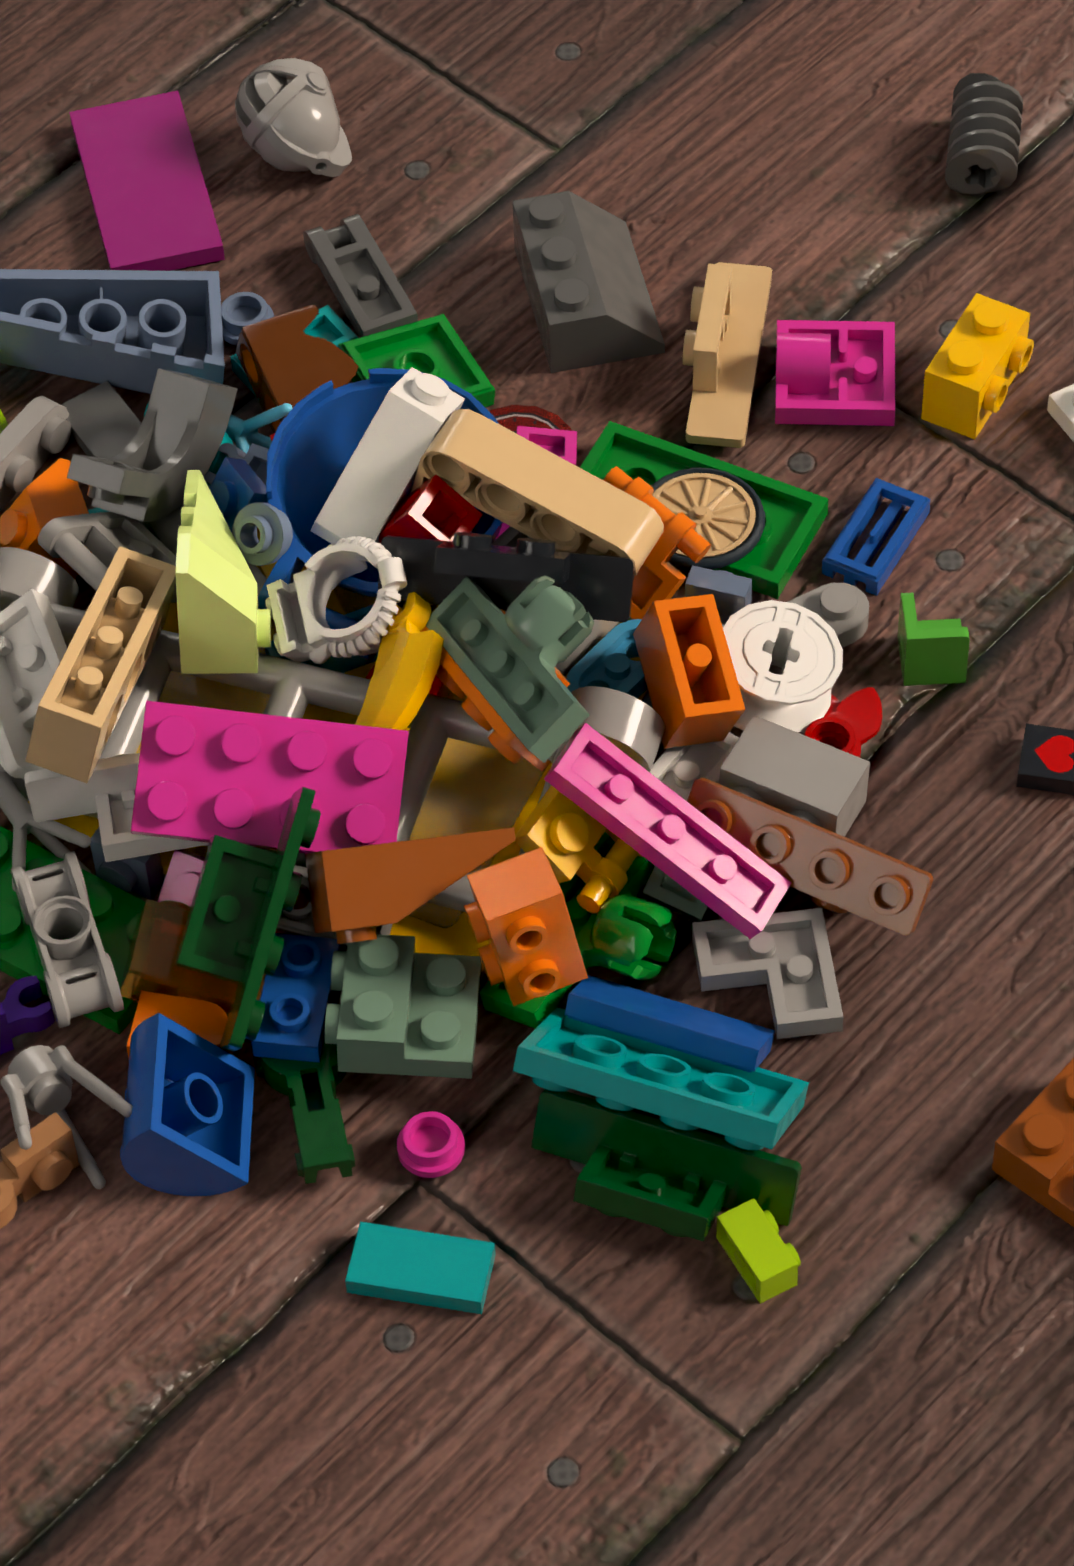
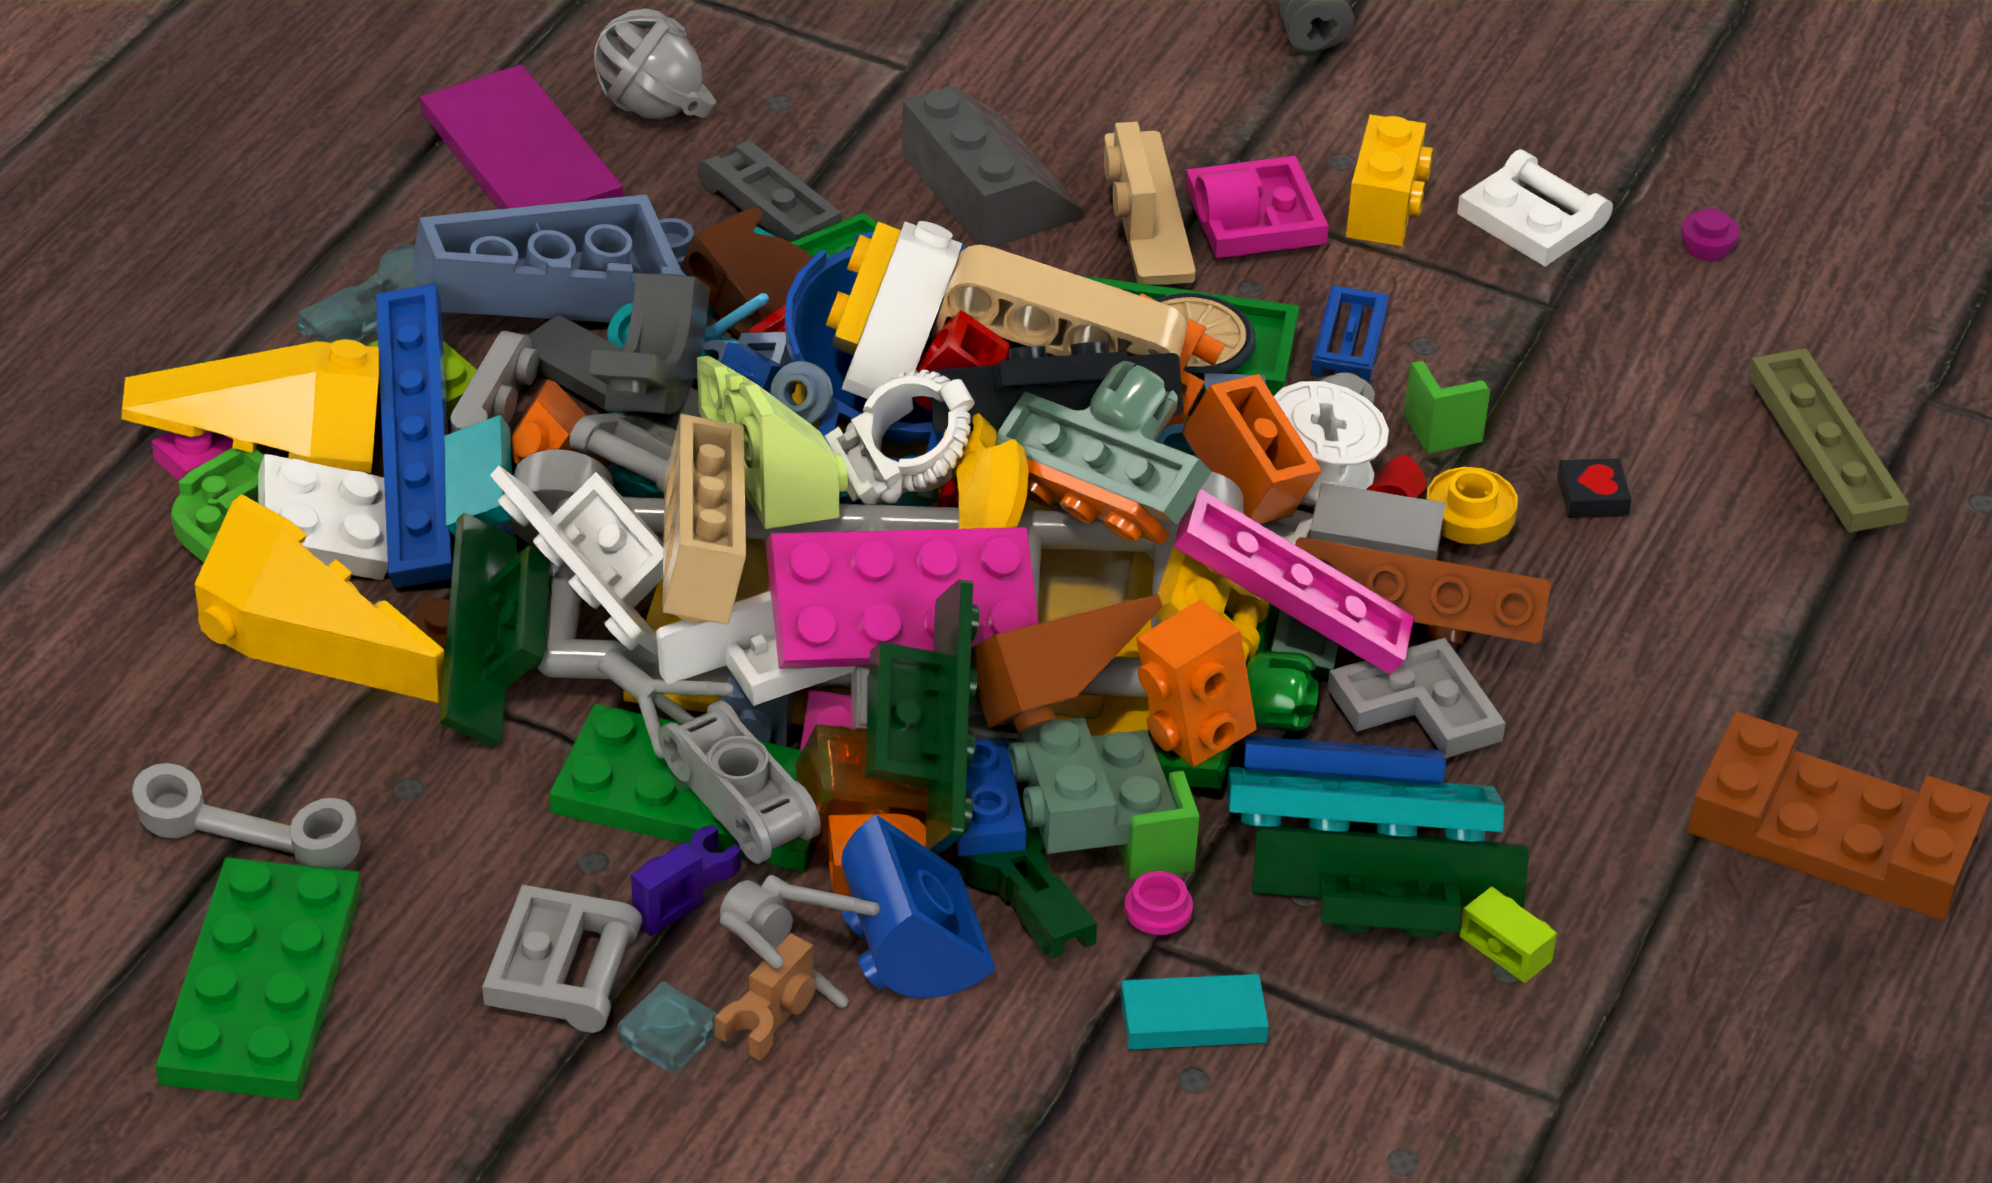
camera: 20 degrees left, 10 degrees down
(340, 445) = (852, 311): none -> yellow plate
(458, 1081) = (1164, 838): none -> bright green panel
(910, 761) = (1477, 505): none -> yellow plate

